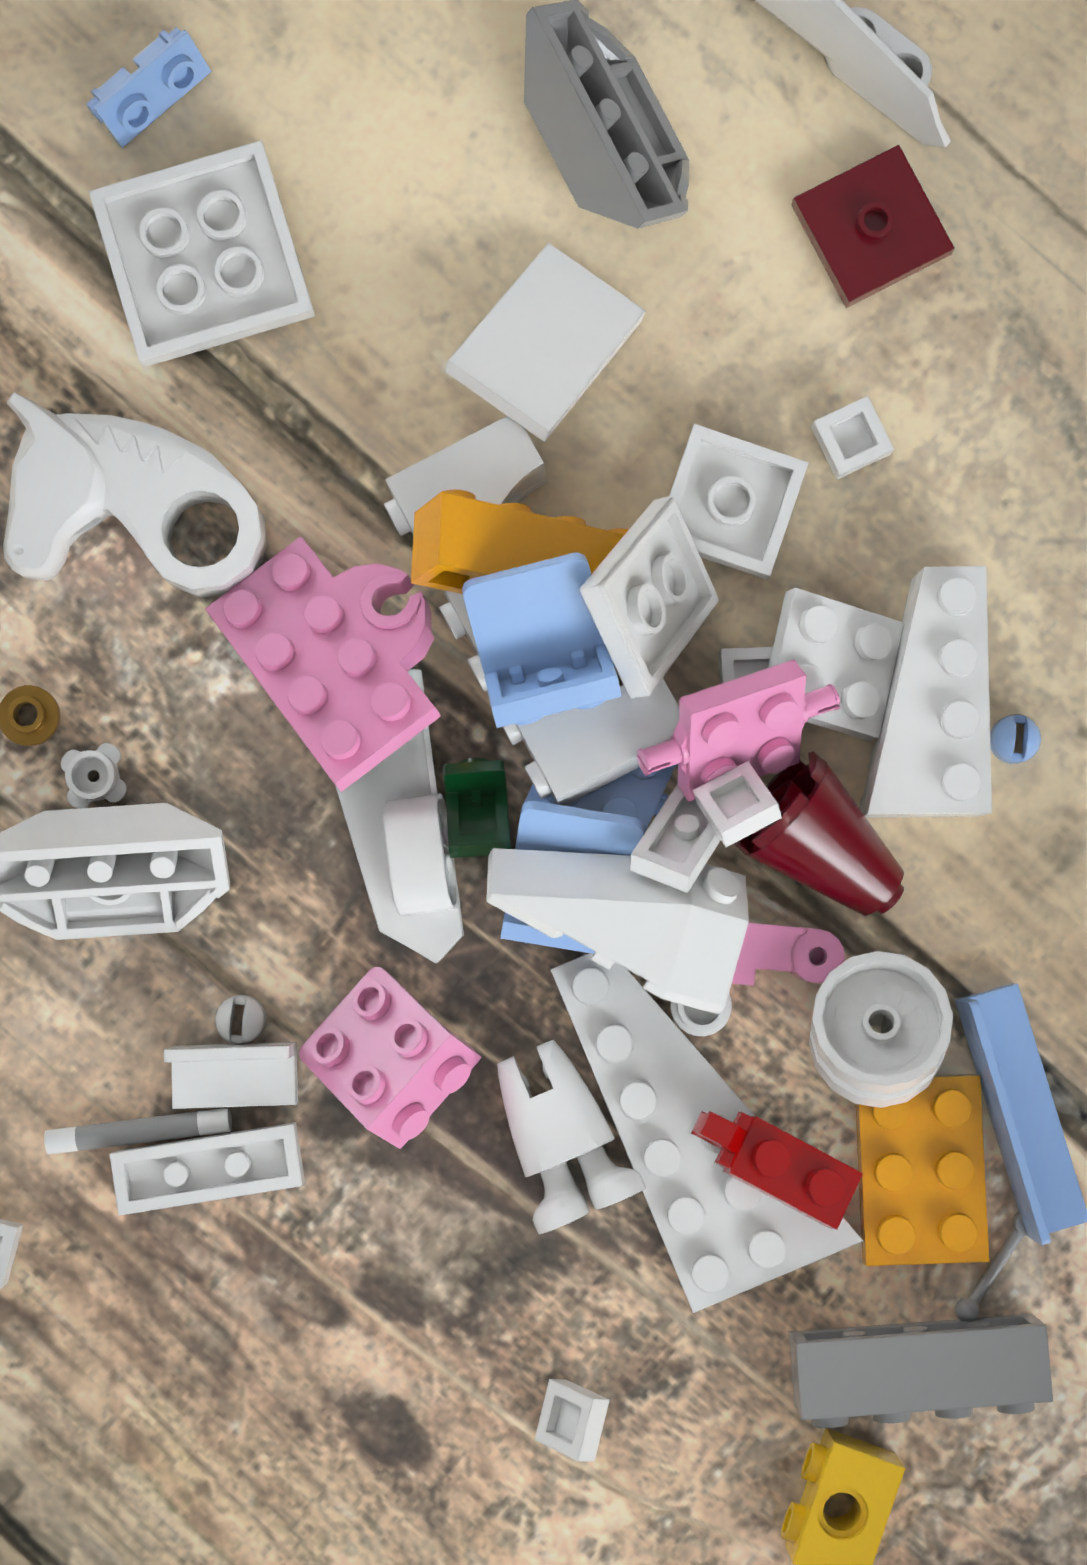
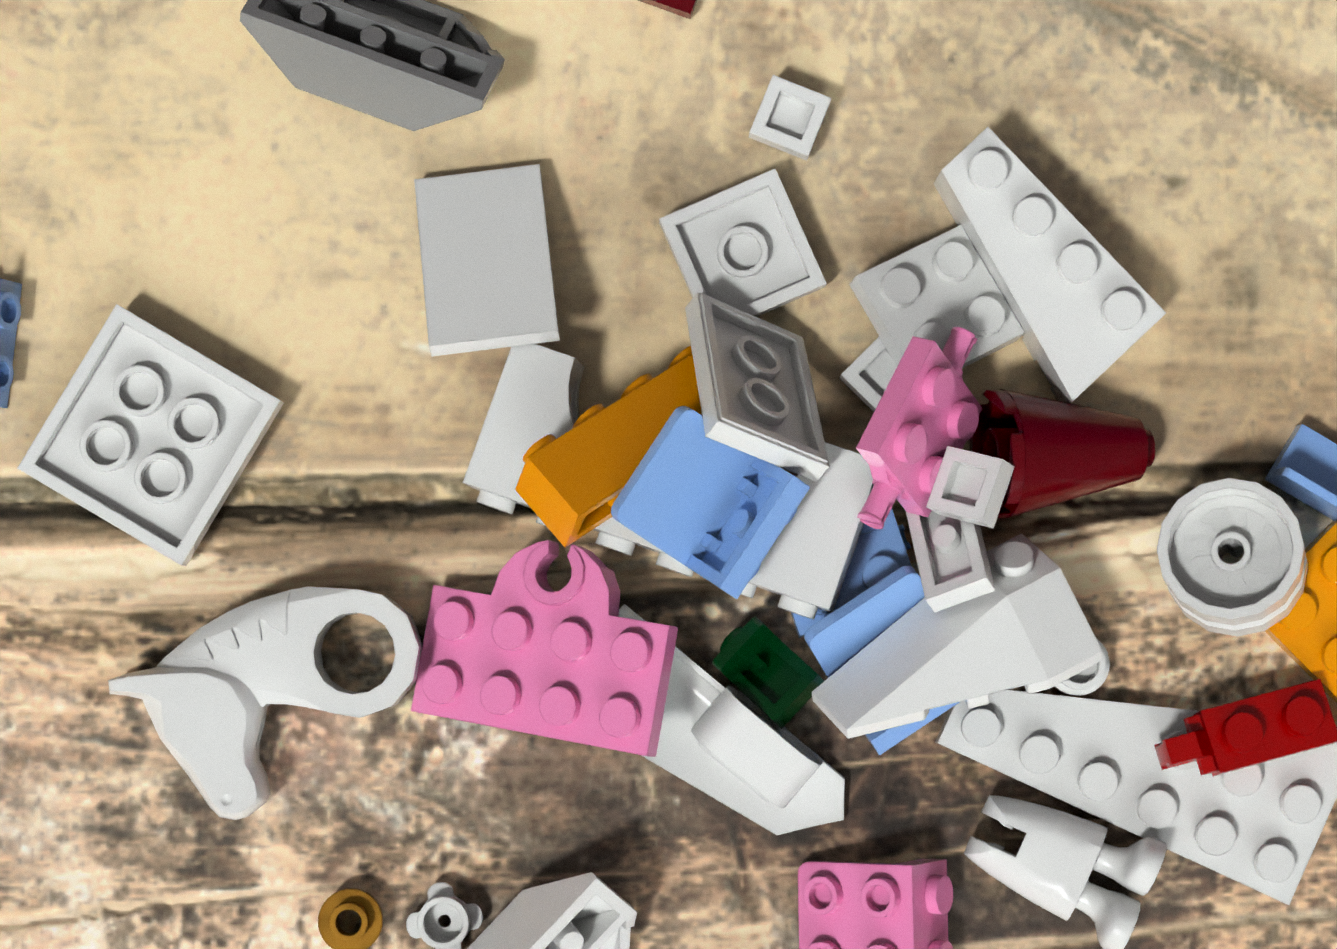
camera: 40 degrees left, 0 degrees up
(801, 951) = (1106, 557): bright pink leg -> none
(1004, 736) = (1117, 241): light blue hinge -> none

